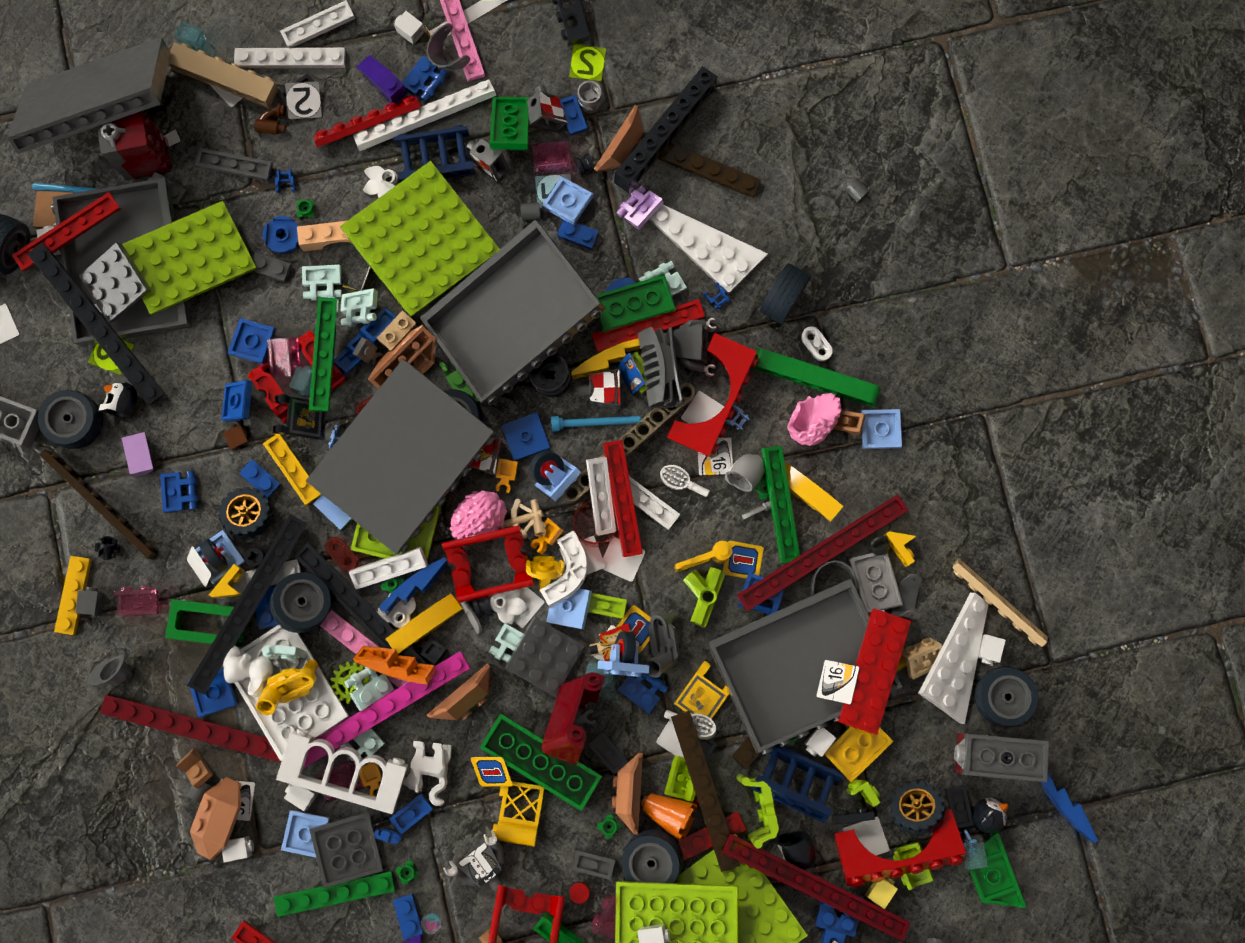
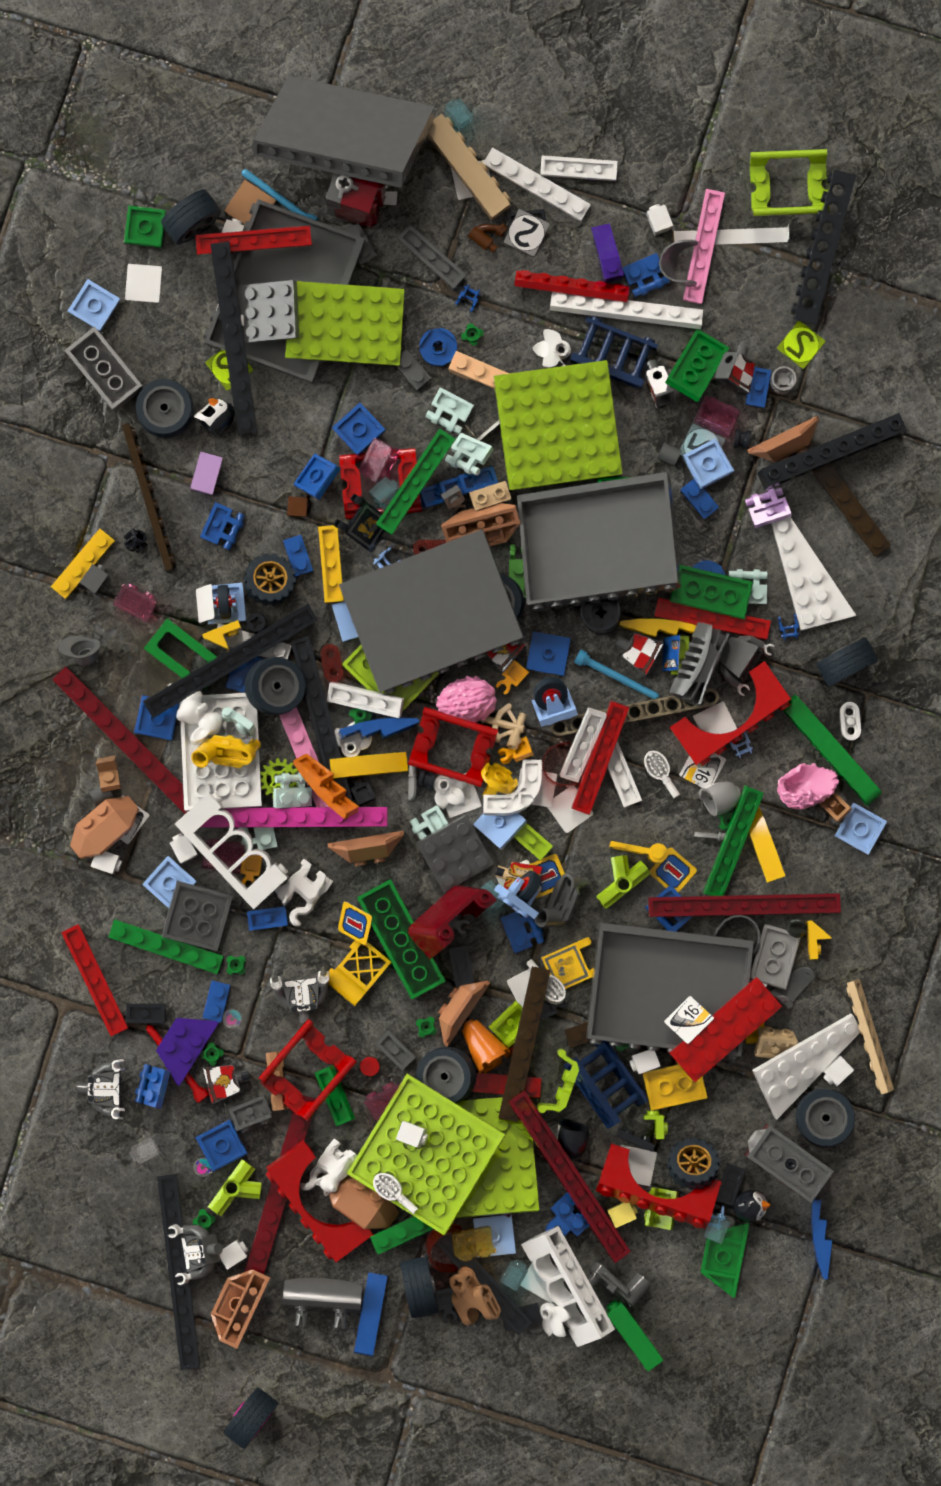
camera: 30 degrees right, 5 degrees up
(388, 835) = (238, 925): blue piece -> none

